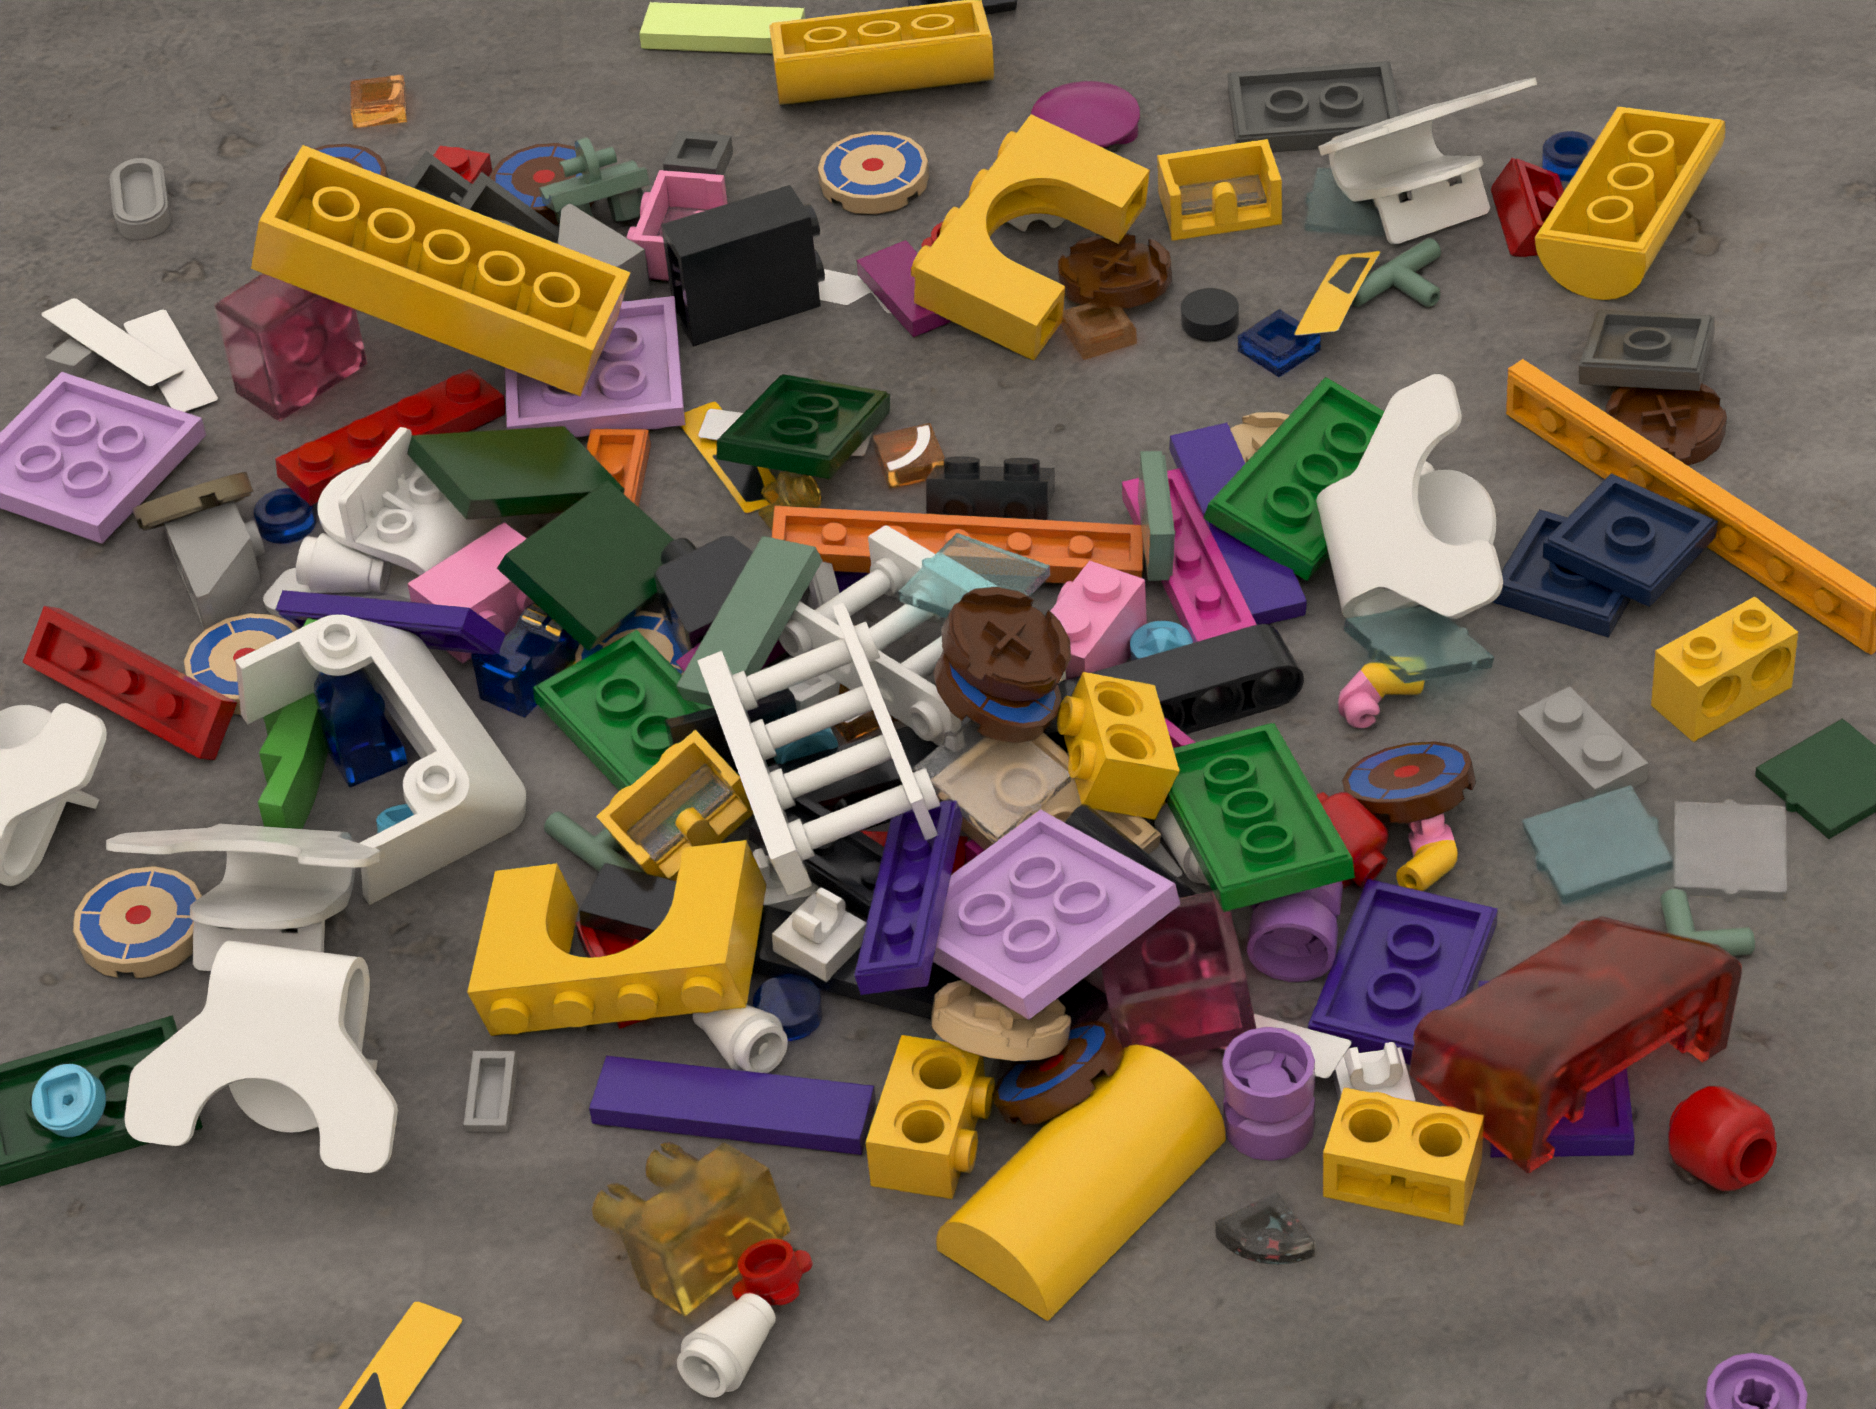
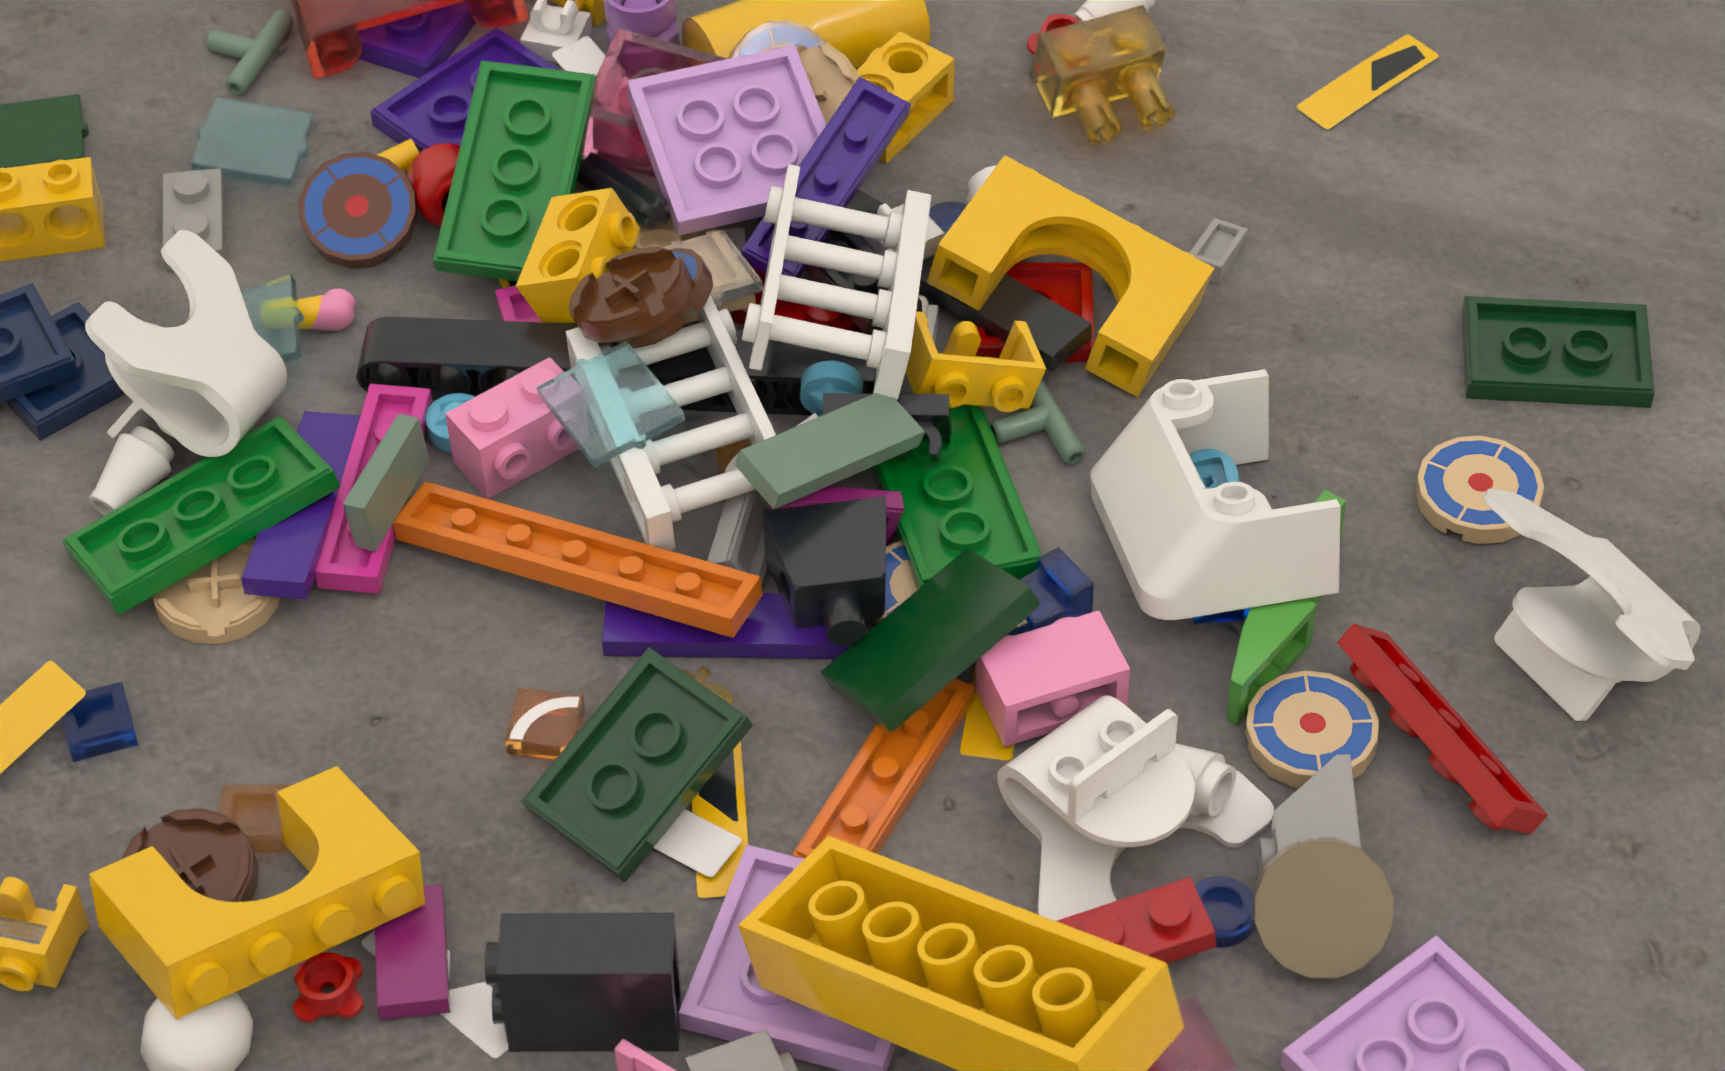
camera: 160 degrees left, 5 degrees up
(68, 1100) = (1574, 306): medium azure tile -> none
(269, 882) = (1366, 415): white piece -> none
(289, 1046) = (1369, 264): white piece -> none
(436, 625) = (1162, 642): dark purple tile -> none
(509, 470) = (968, 764): dark green tile -> none
(733, 1104) = (975, 144): dark purple tile -> none
(1009, 491) = (498, 632): black bracket -> none
(1209, 314) = (135, 782): black tile -> none
(1730, 850) = (158, 112): clear piece -> none

